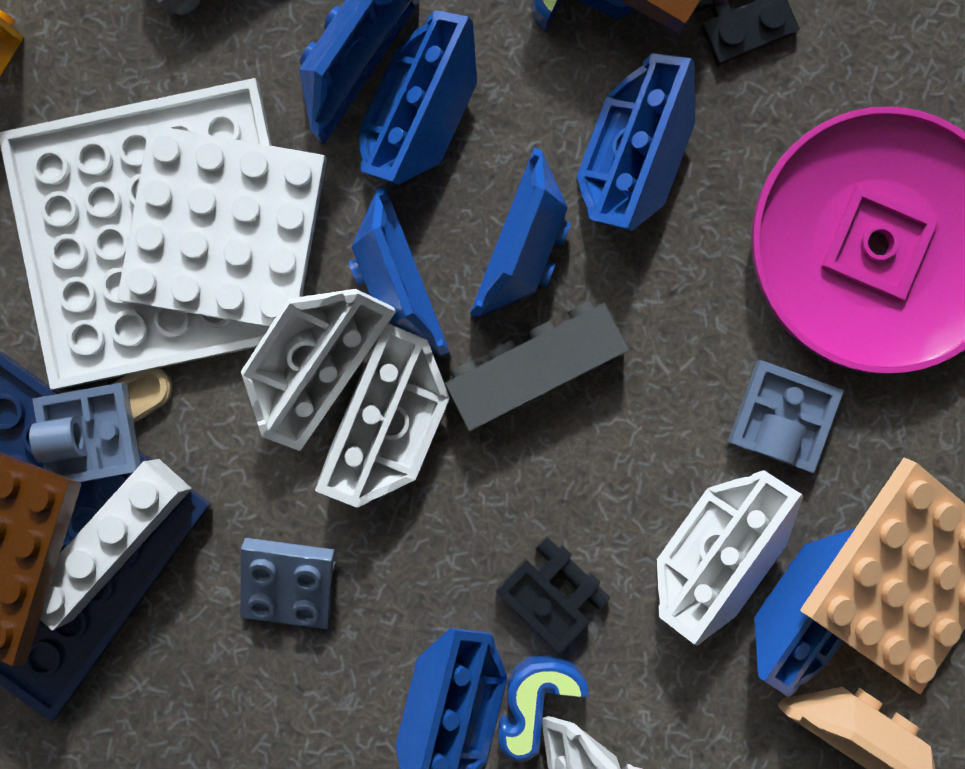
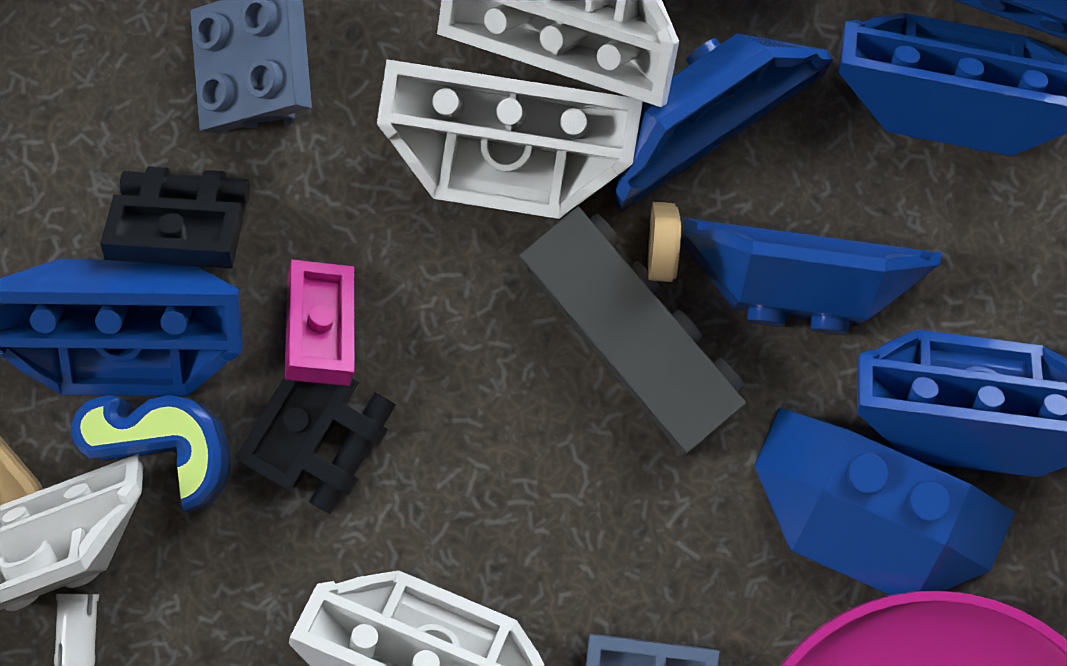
camera: 80 degrees right, 5 degrees down
(395, 663) = (175, 218): none -> black plate
(482, 576) = (320, 323): none -> dark pink plate
(483, 331) = (664, 242): none -> tan tile
(691, 236) = (876, 509): none -> blue wedge

